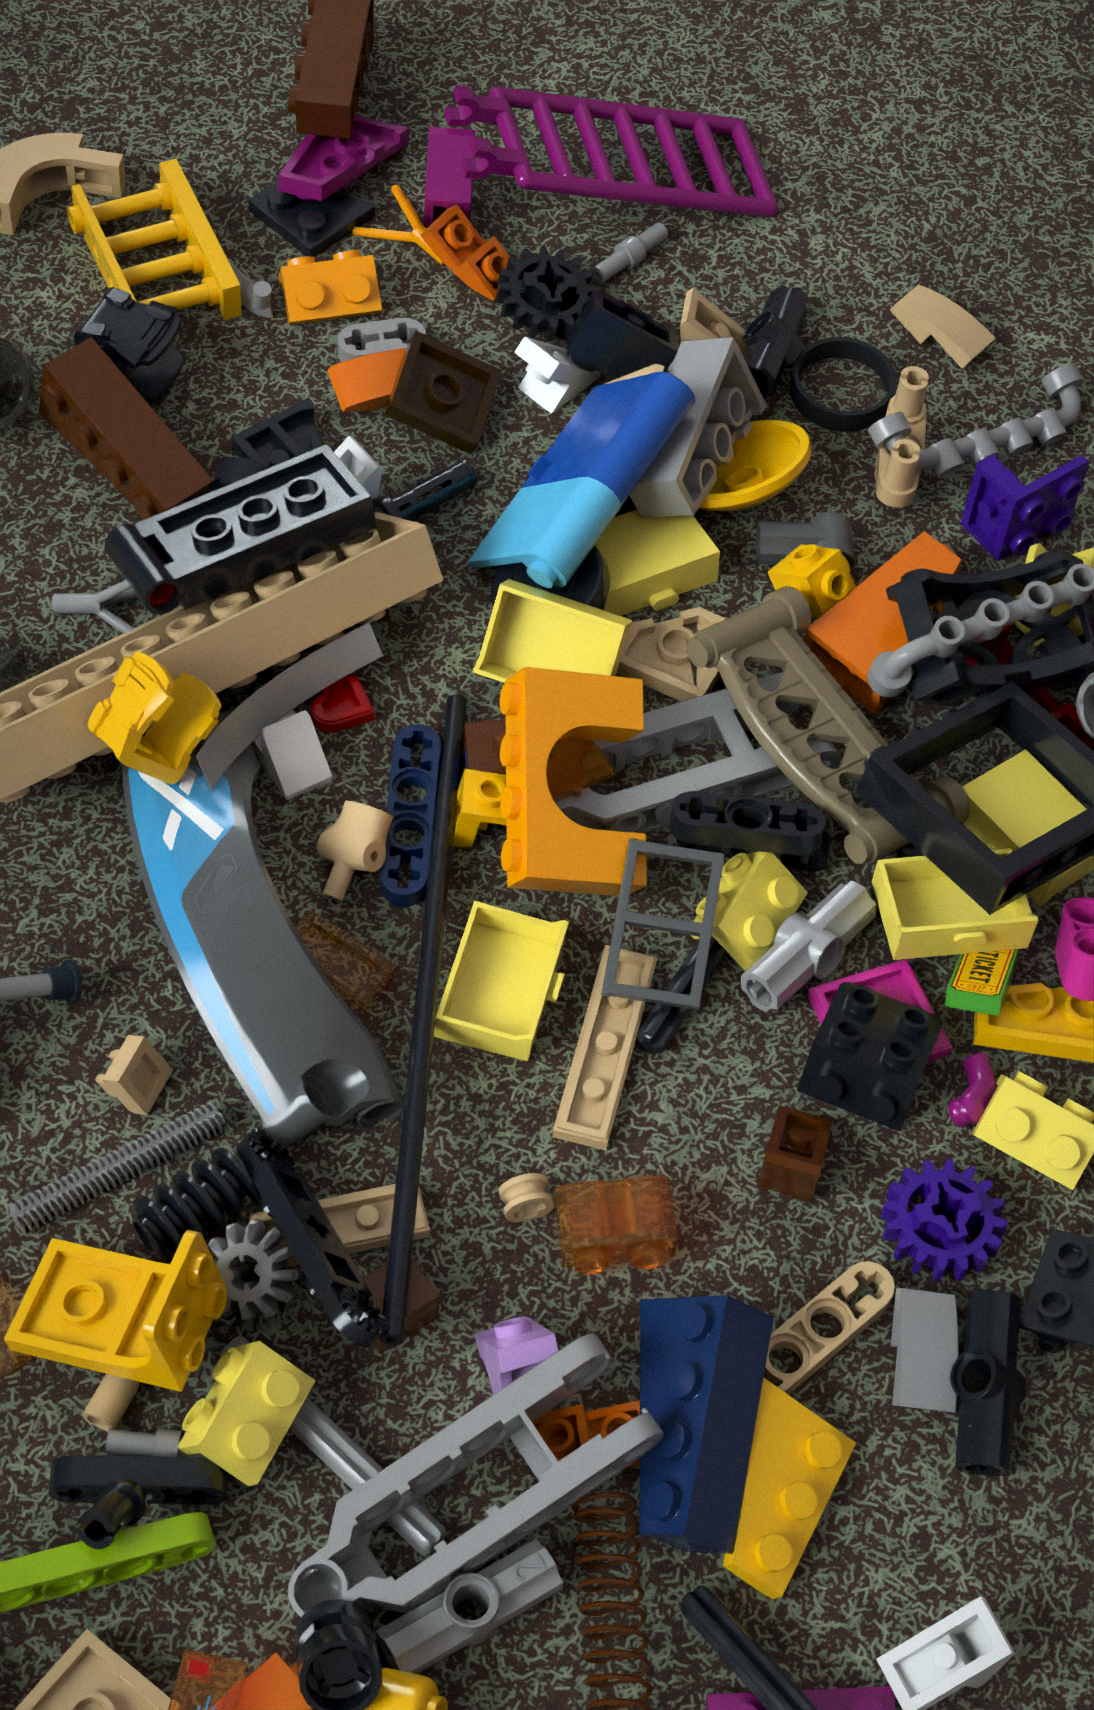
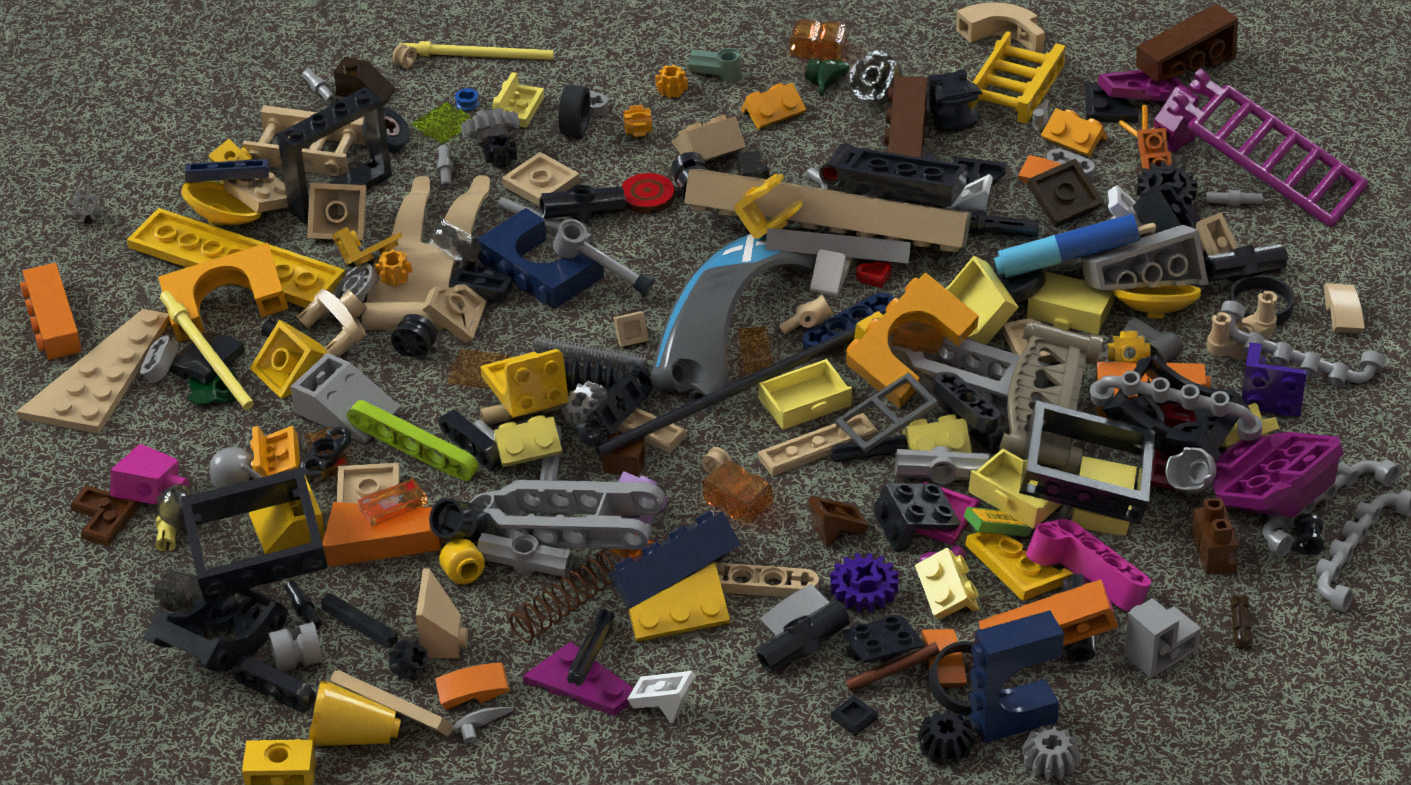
camera: 55 degrees right, 15 degrees down
(119, 1506) = (442, 429): black pin -> none

